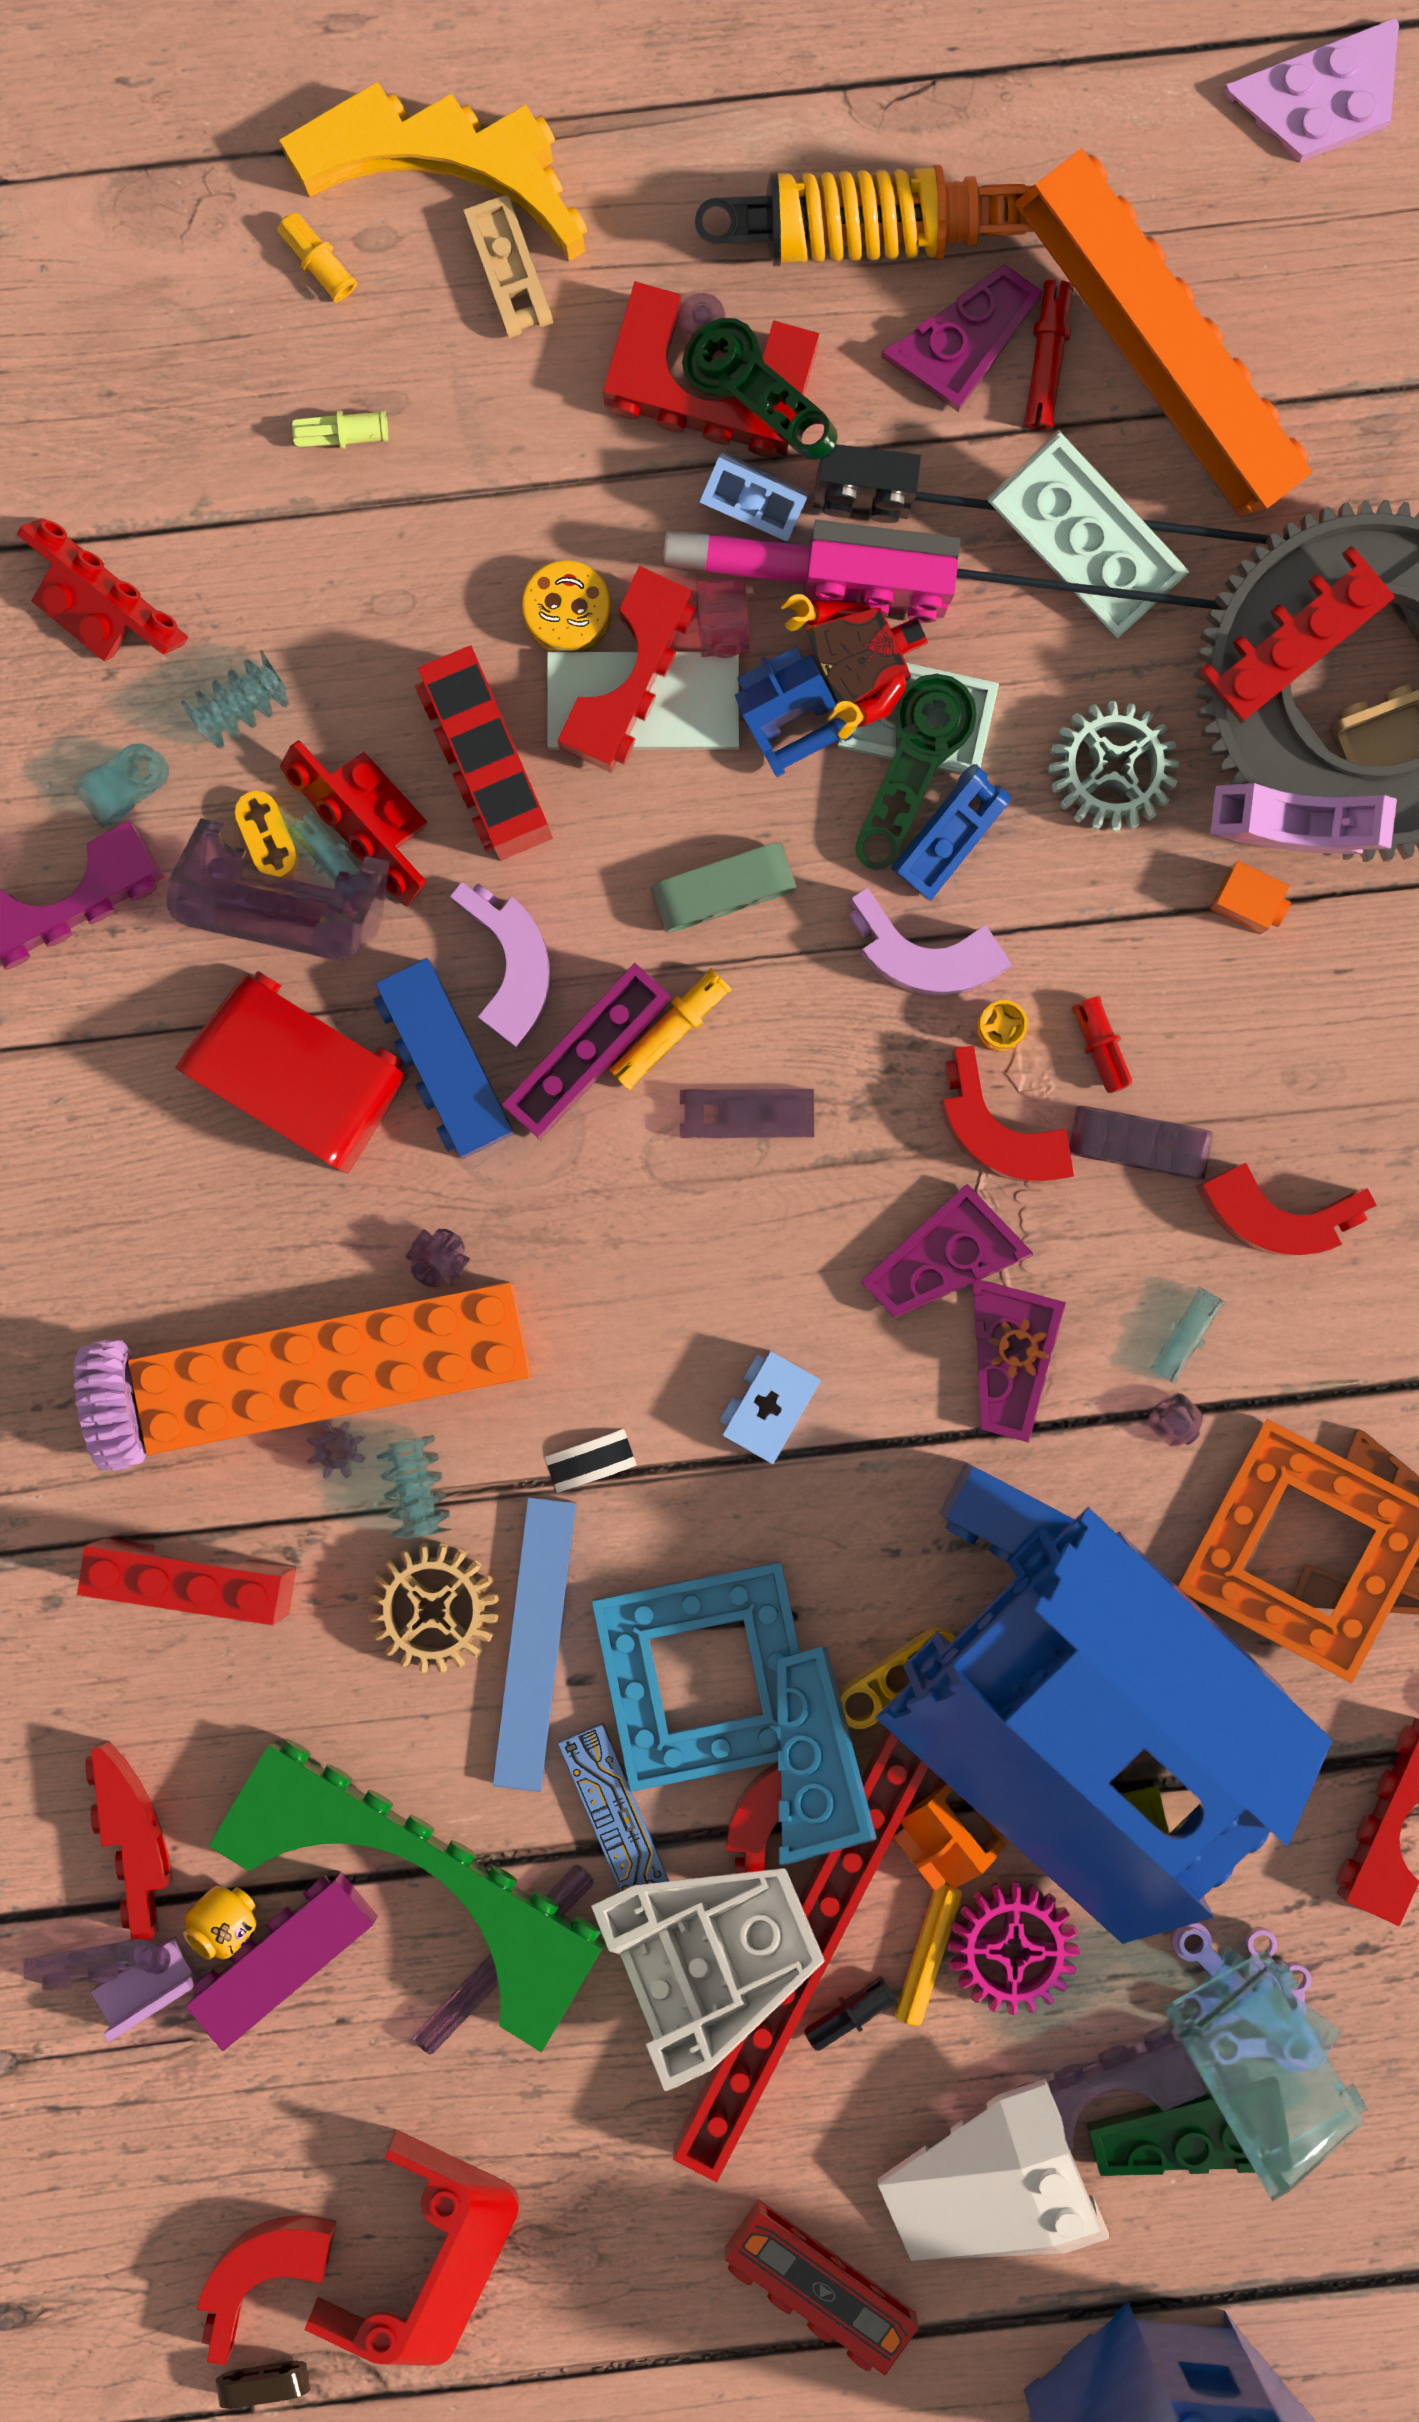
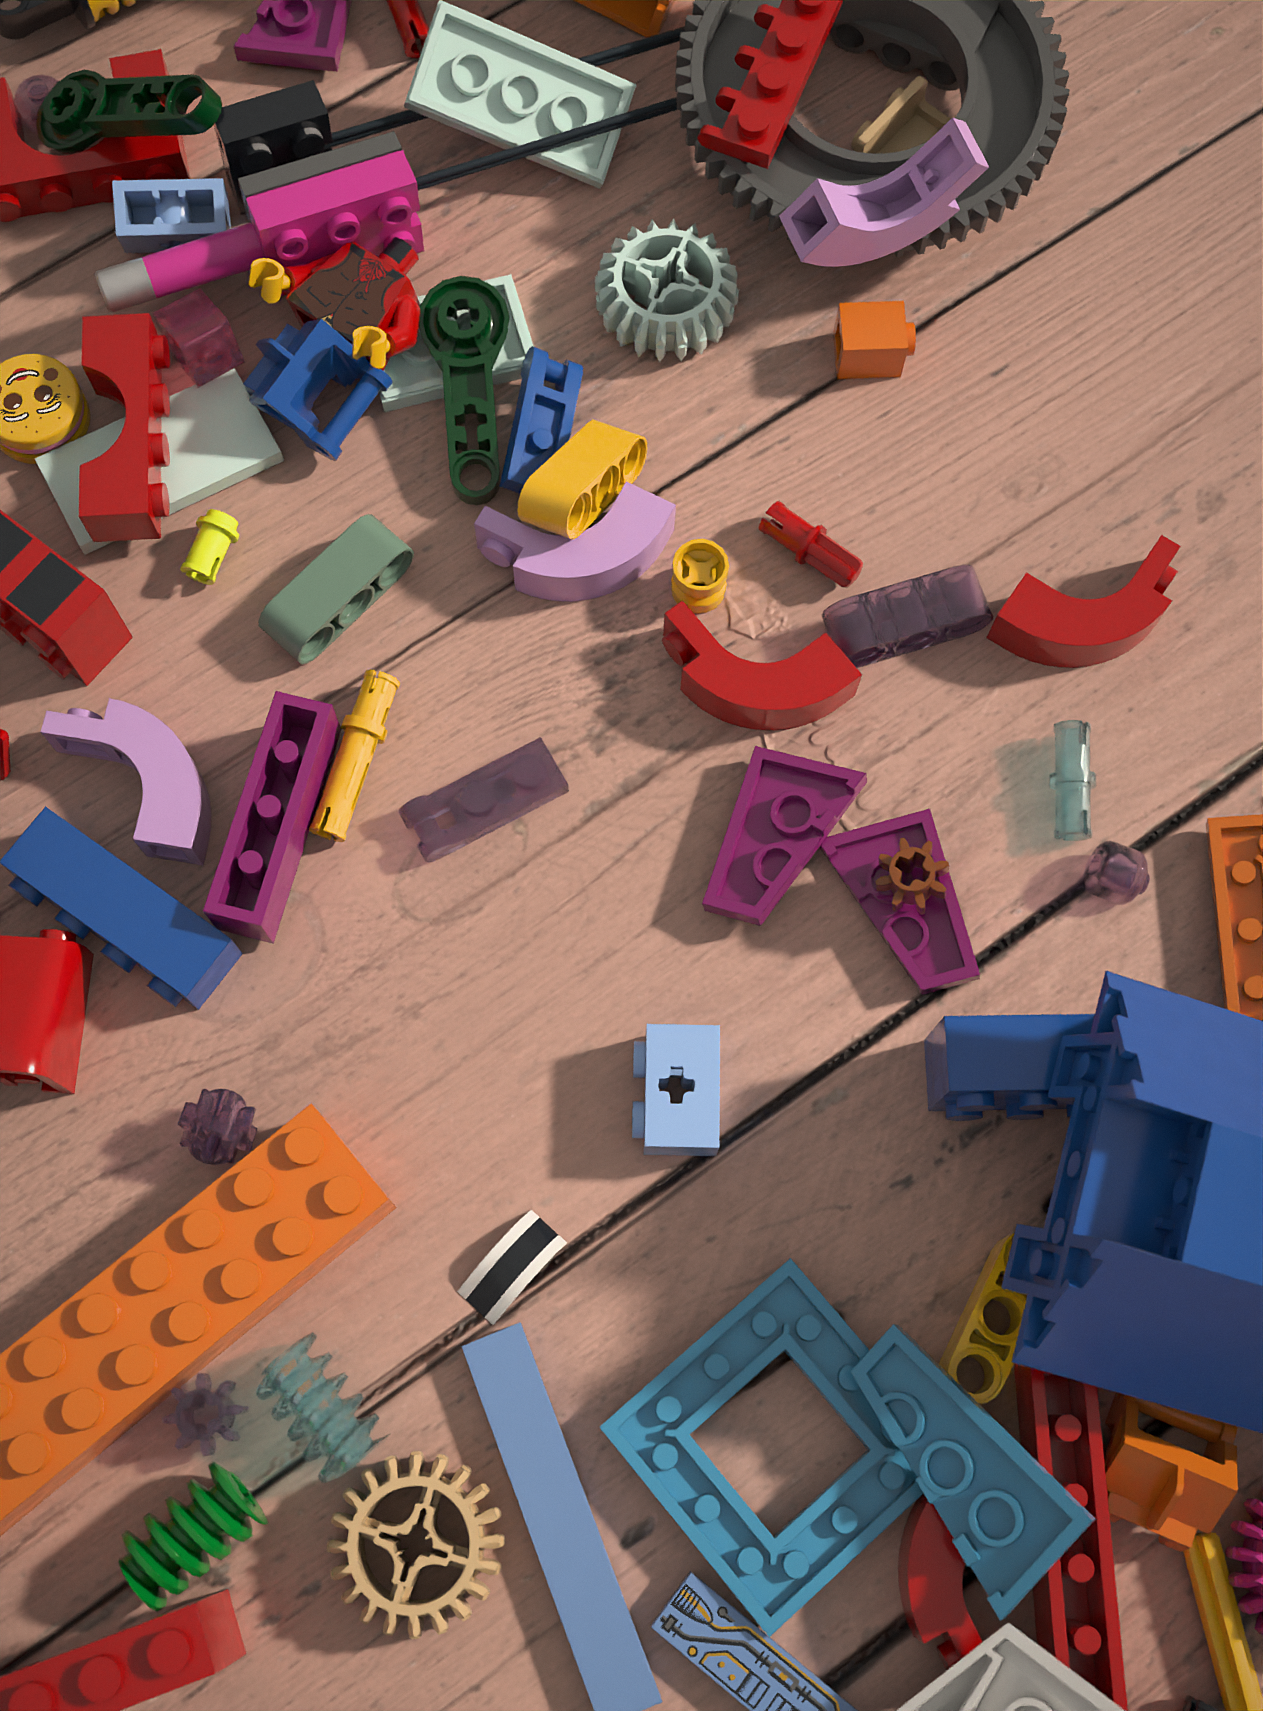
camera: 35 degrees left, 15 degrees down
(290, 1522) = (188, 1537): none -> green piece
(646, 798) = (210, 546): none -> neon yellow pin
(954, 904) = (582, 479): none -> yellow beam

